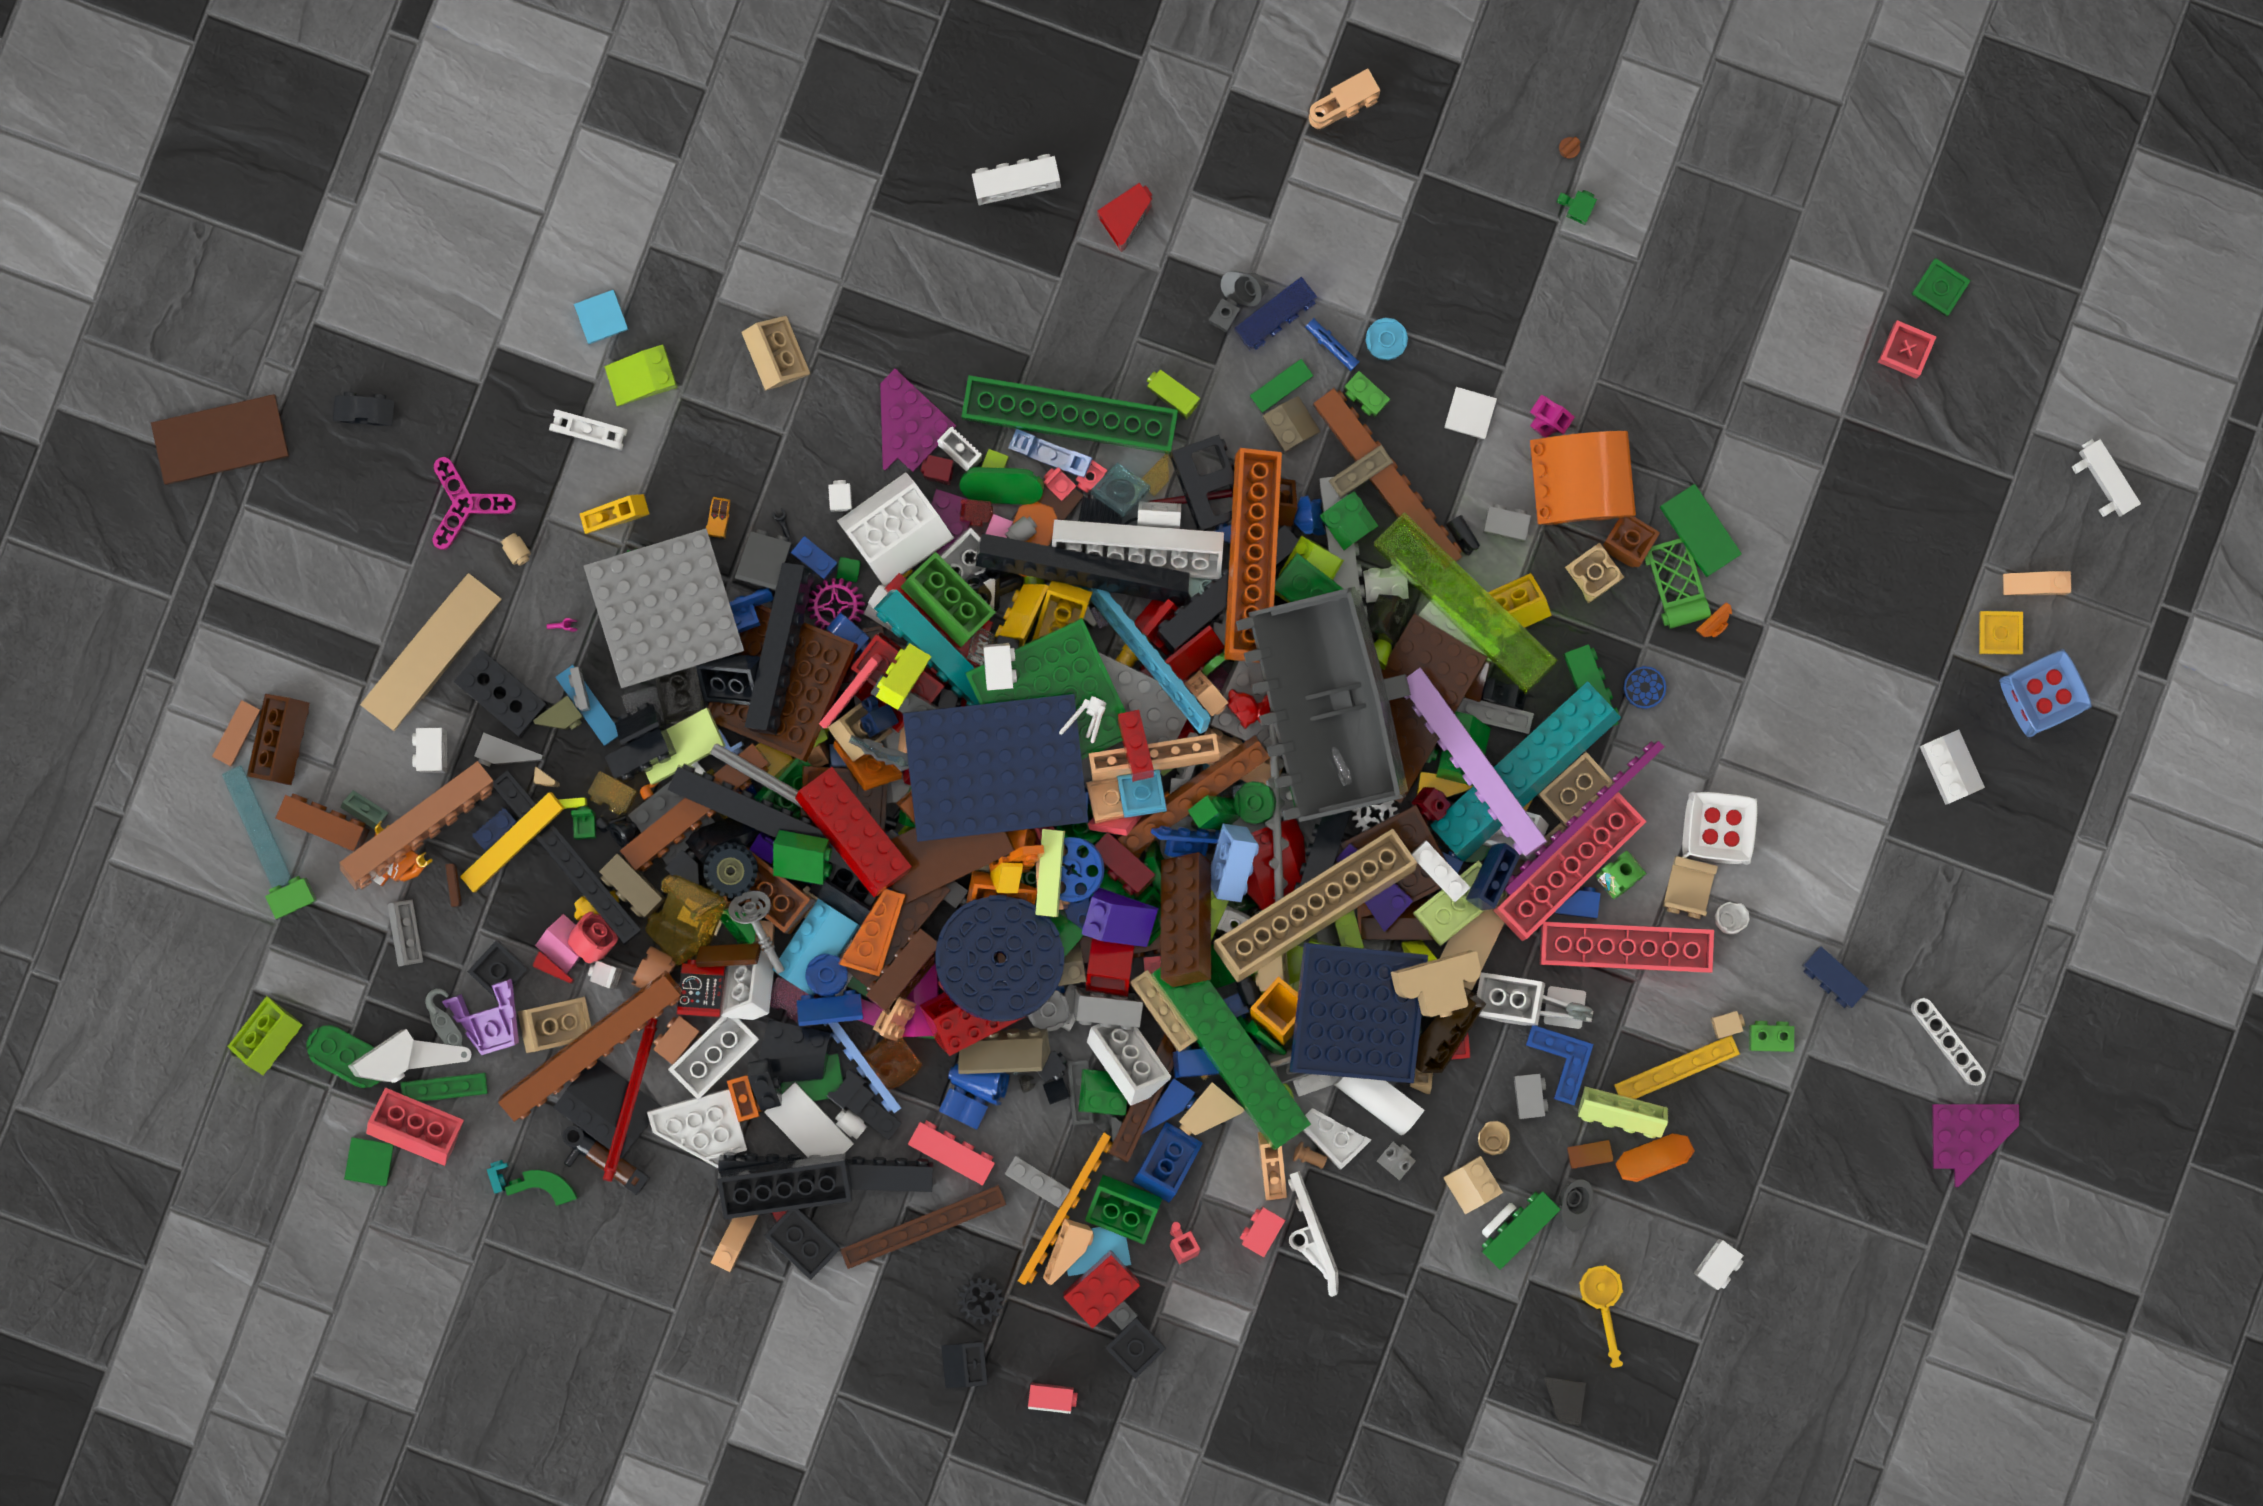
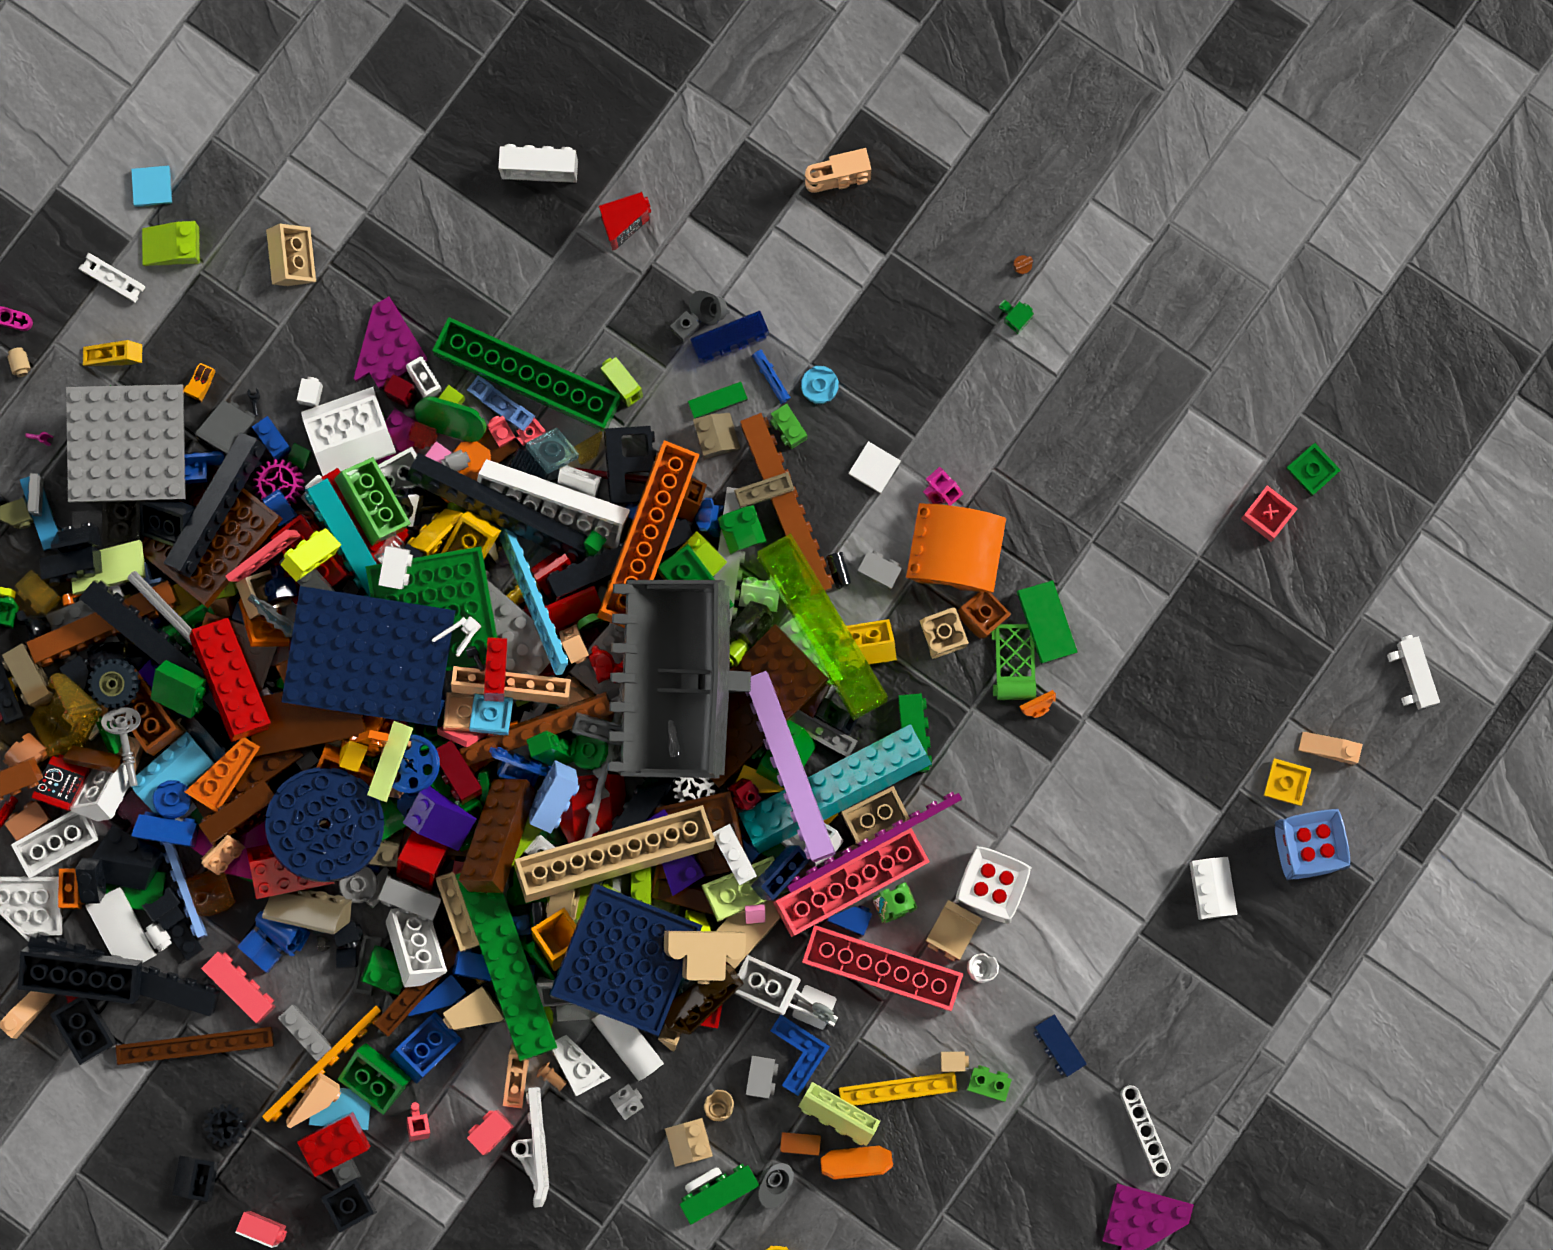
camera: 10 degrees right, 5 degrees down
(1104, 733) = (472, 652): none -> black hand
(1196, 578) = (594, 543): none -> green slope
(1257, 777) = (595, 727): none -> dark grey tile
(1477, 927) = (755, 914): none -> bright pink tile
(1644, 687) = (961, 745): tile -> none

